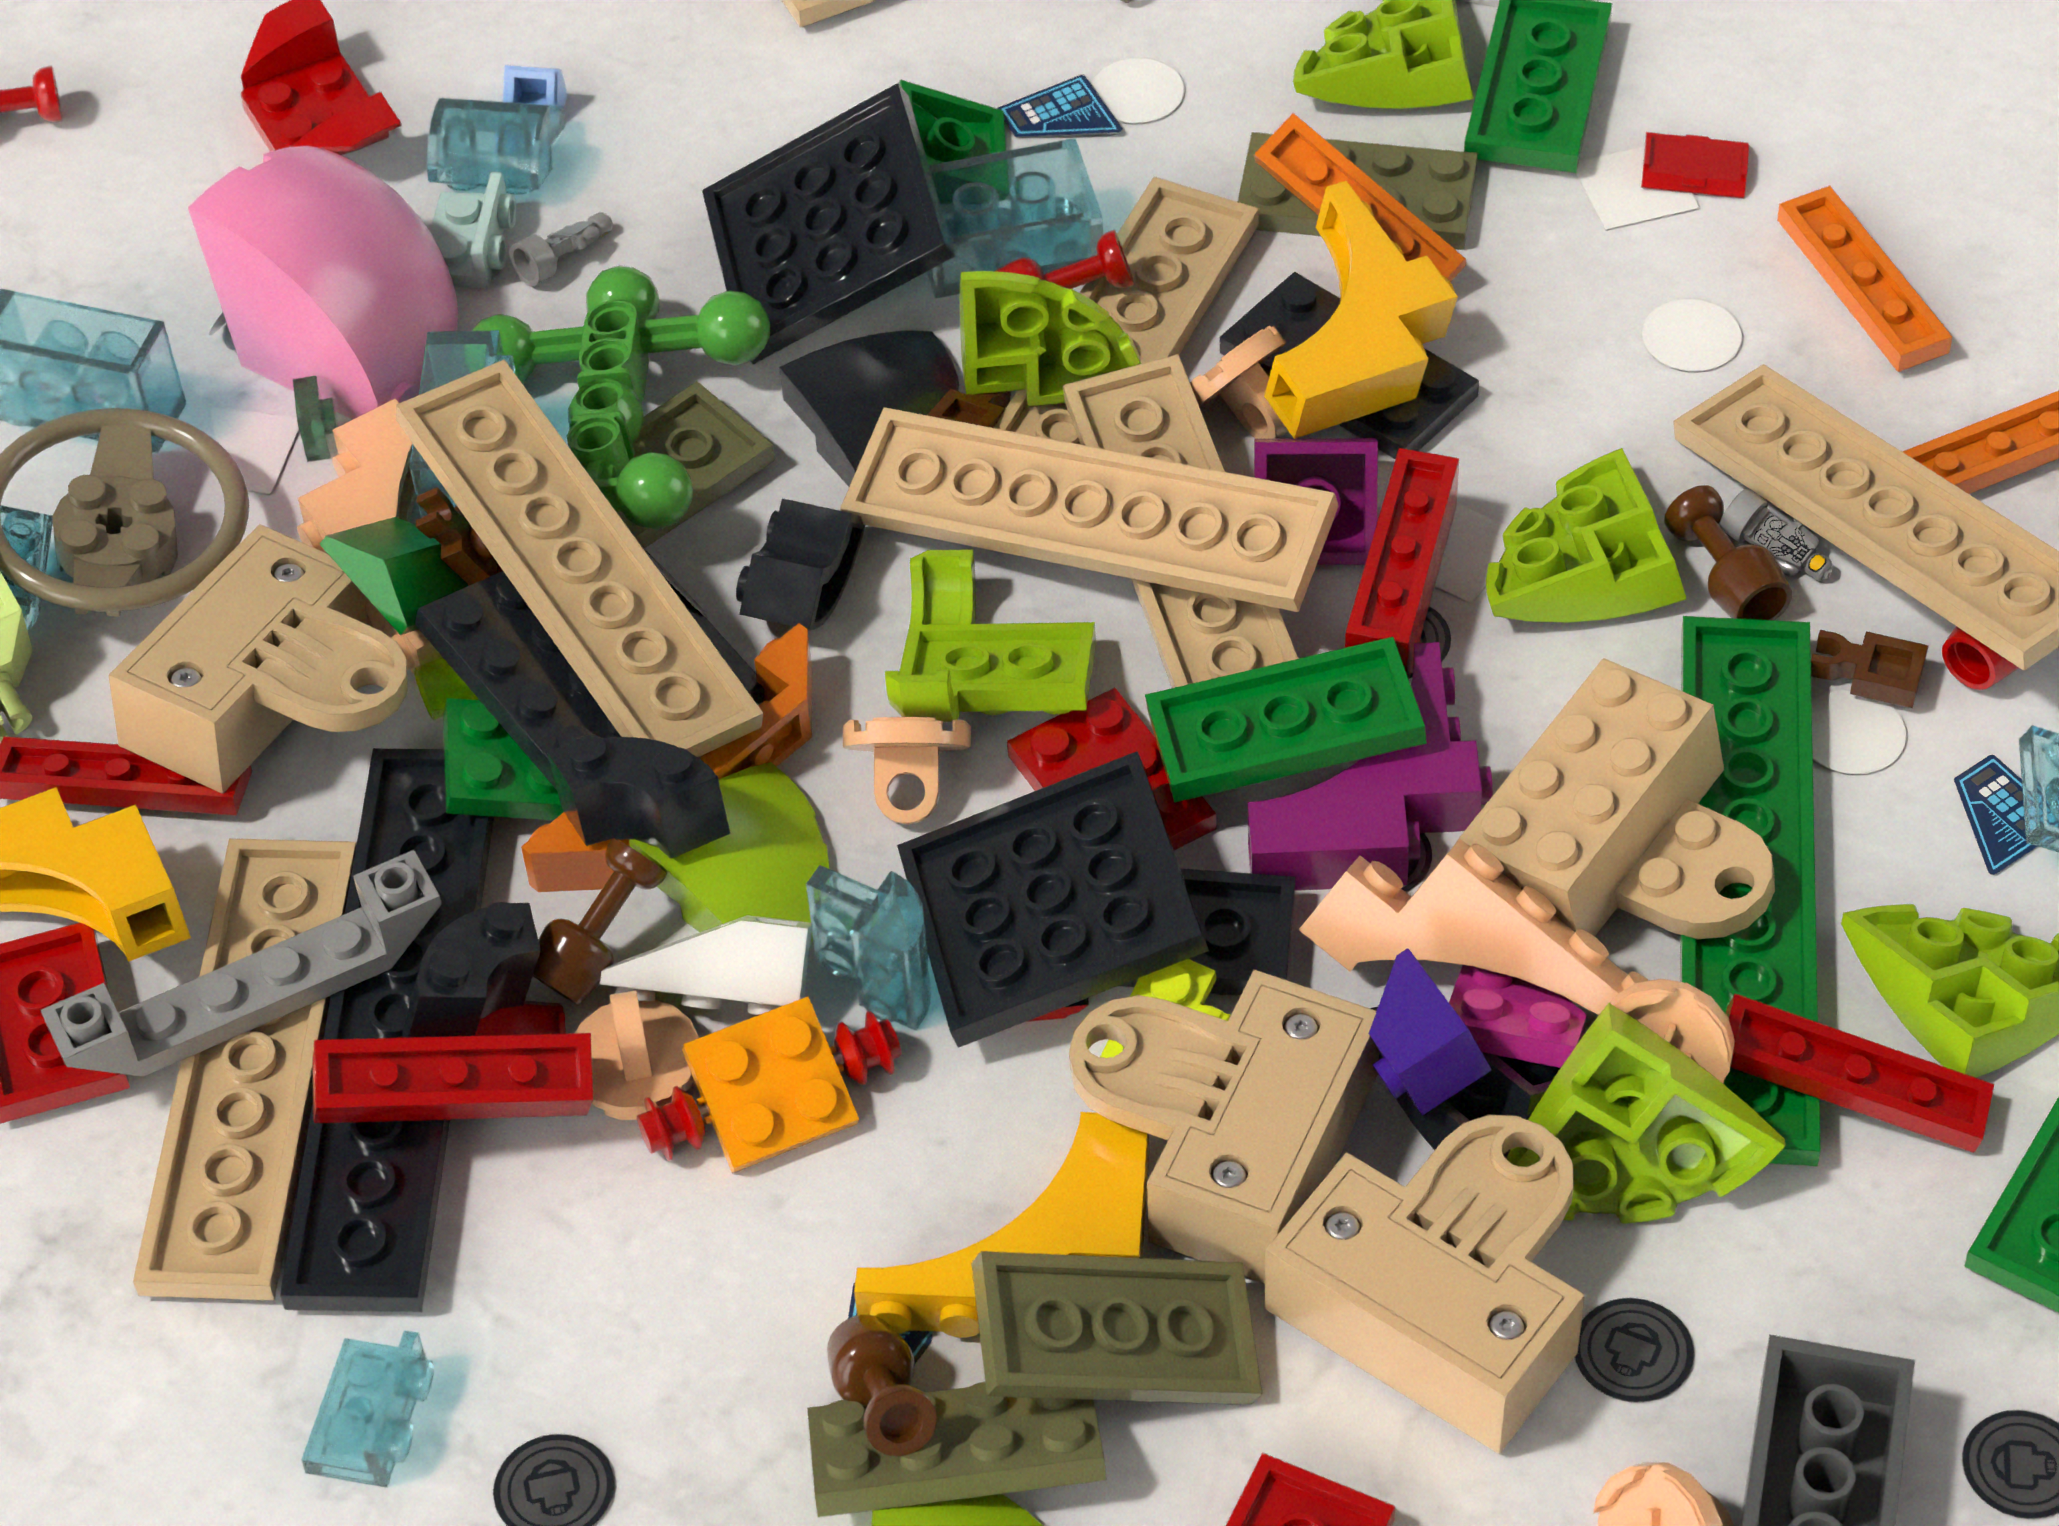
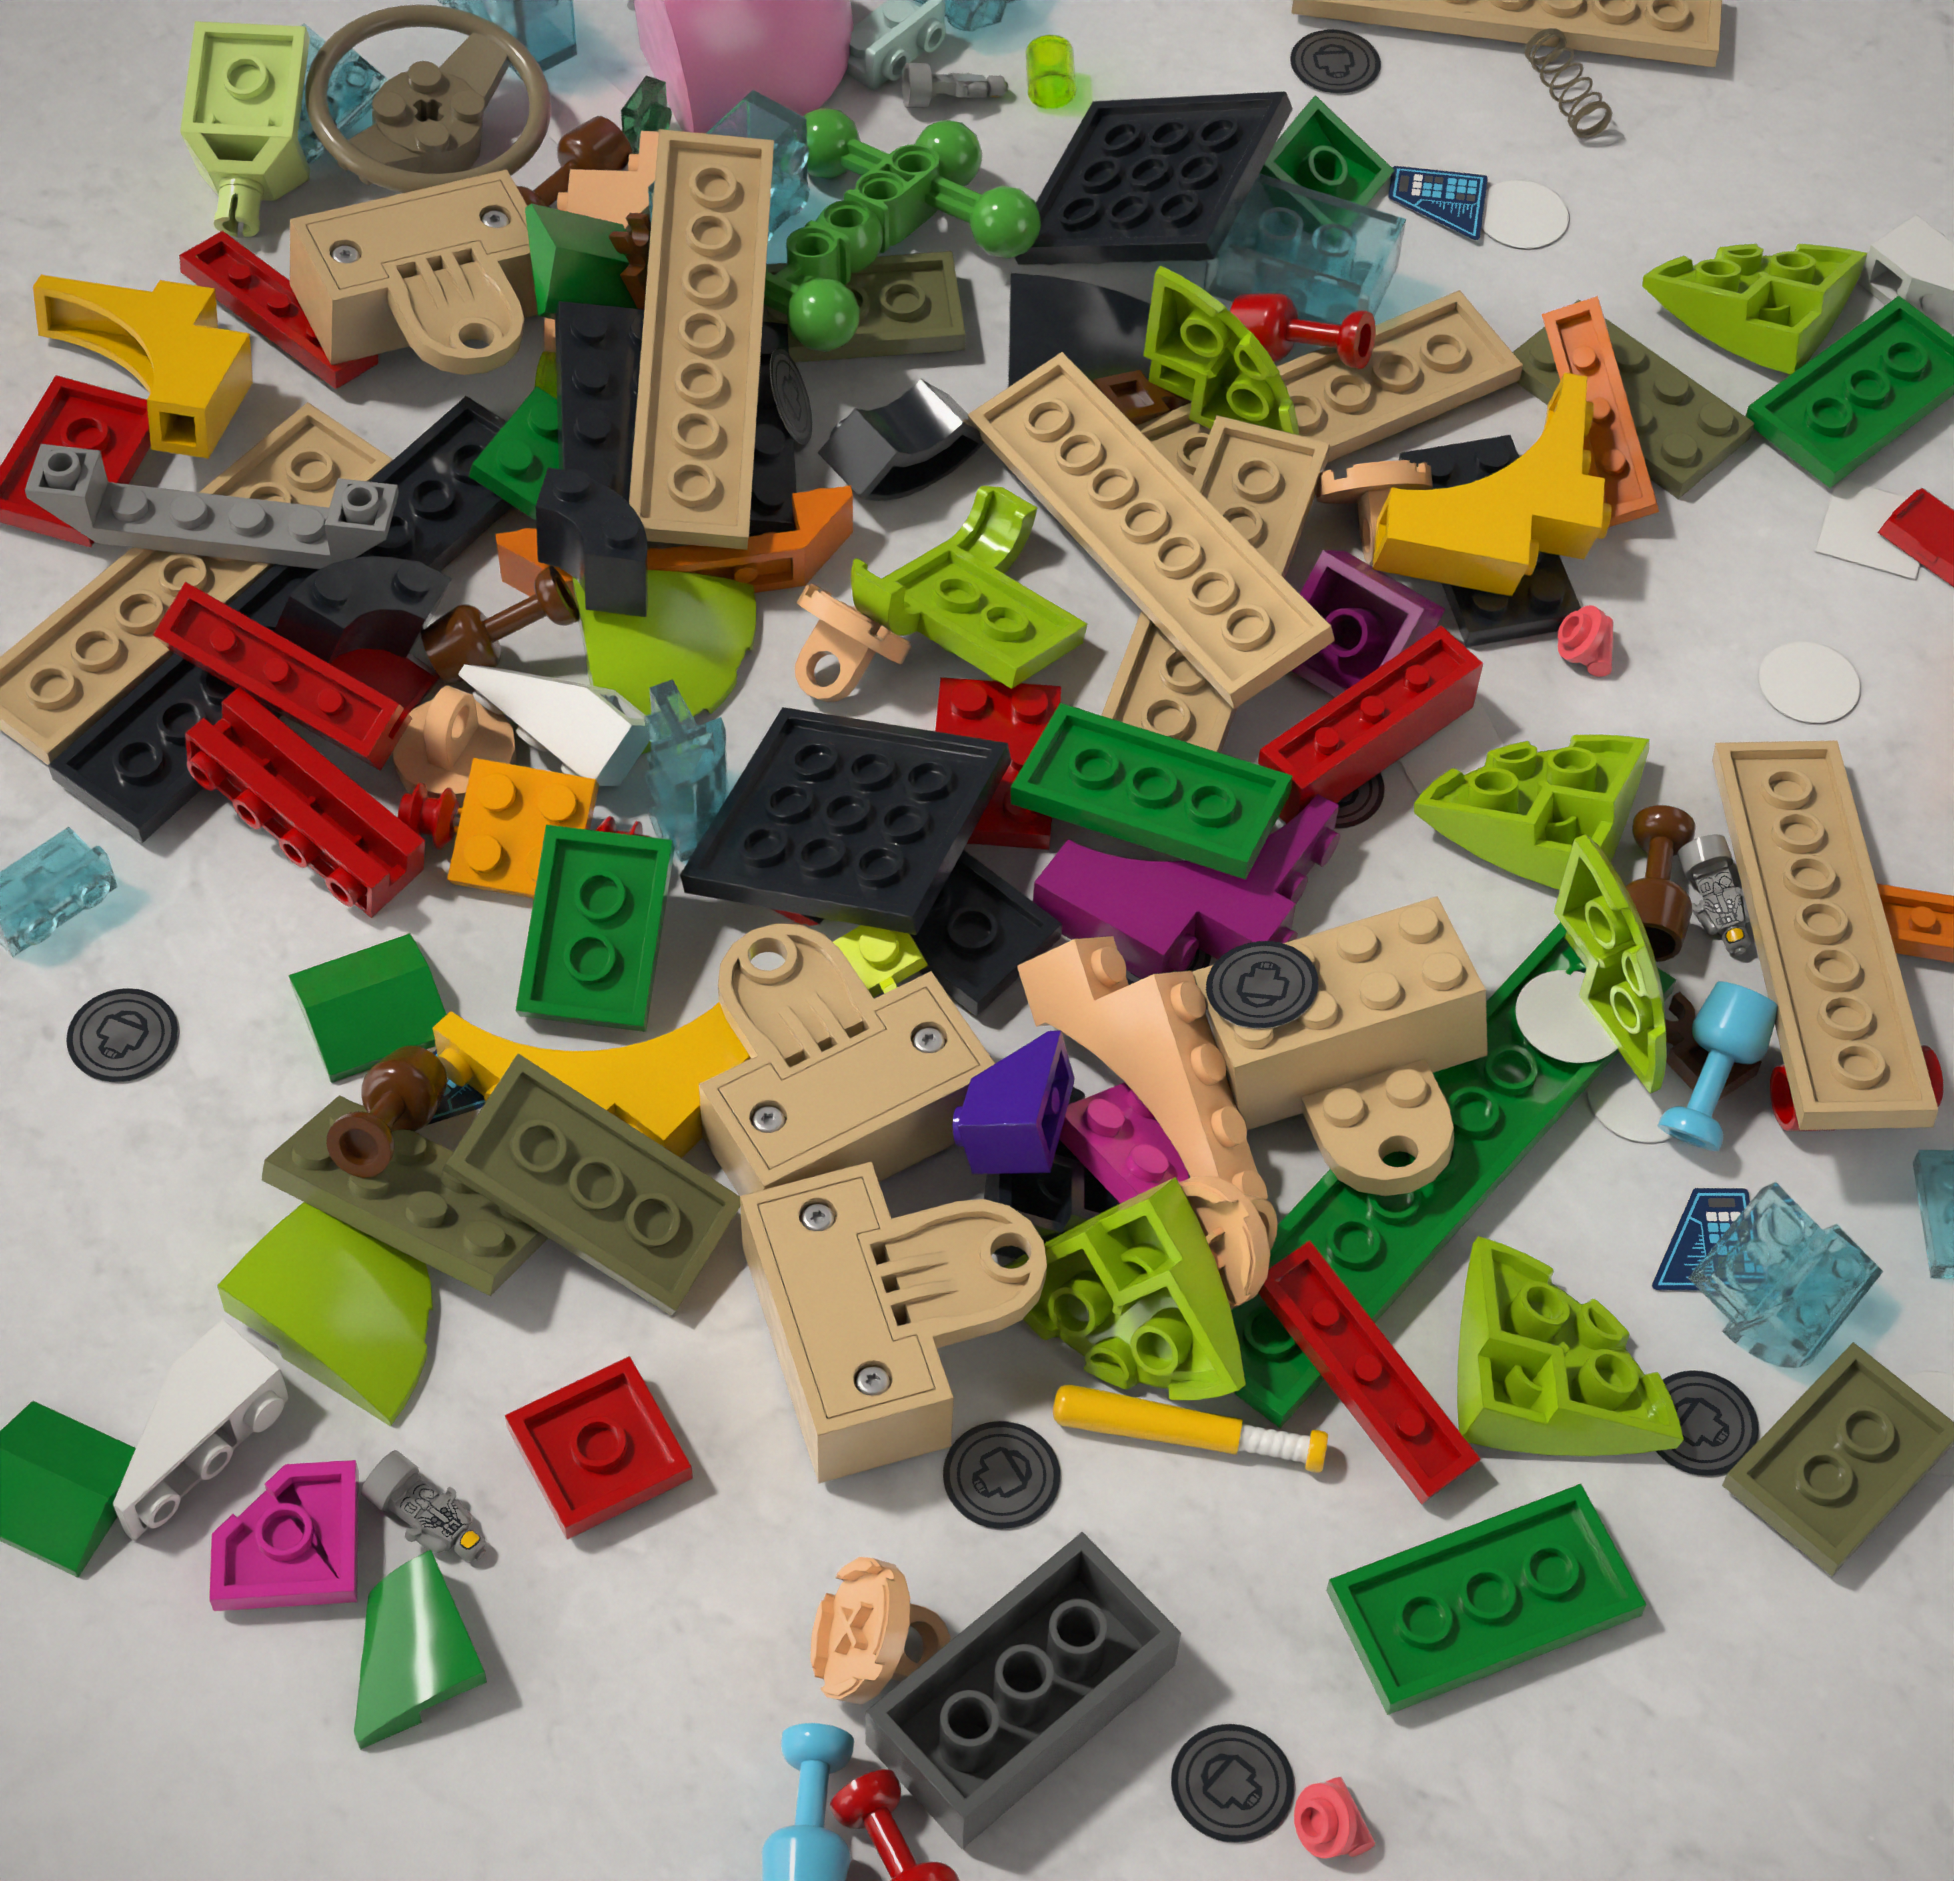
camera: 30 degrees right, 5 degrees up
(291, 470) = (591, 146): none -> reddish brown piece
(555, 1178) = (305, 804): none -> red brick
(641, 185) = (1050, 71): none -> clear neon green beam
(761, 1317) = (369, 1005): none -> green slope
(870, 48) = (1335, 61): none -> sticker
(914, 1122) = (595, 928): none -> green plate
(1498, 399) = (1587, 639): none -> coral plate
(1532, 811) = (1262, 984): none -> sticker
(1726, 1221) = (1166, 1423): none -> yellow piece
(1759, 699) = (1559, 1020): none -> white sticker
(1781, 624) = (1621, 970): none -> lime brick
(1898, 628) = (1733, 1028): none -> medium azure piece

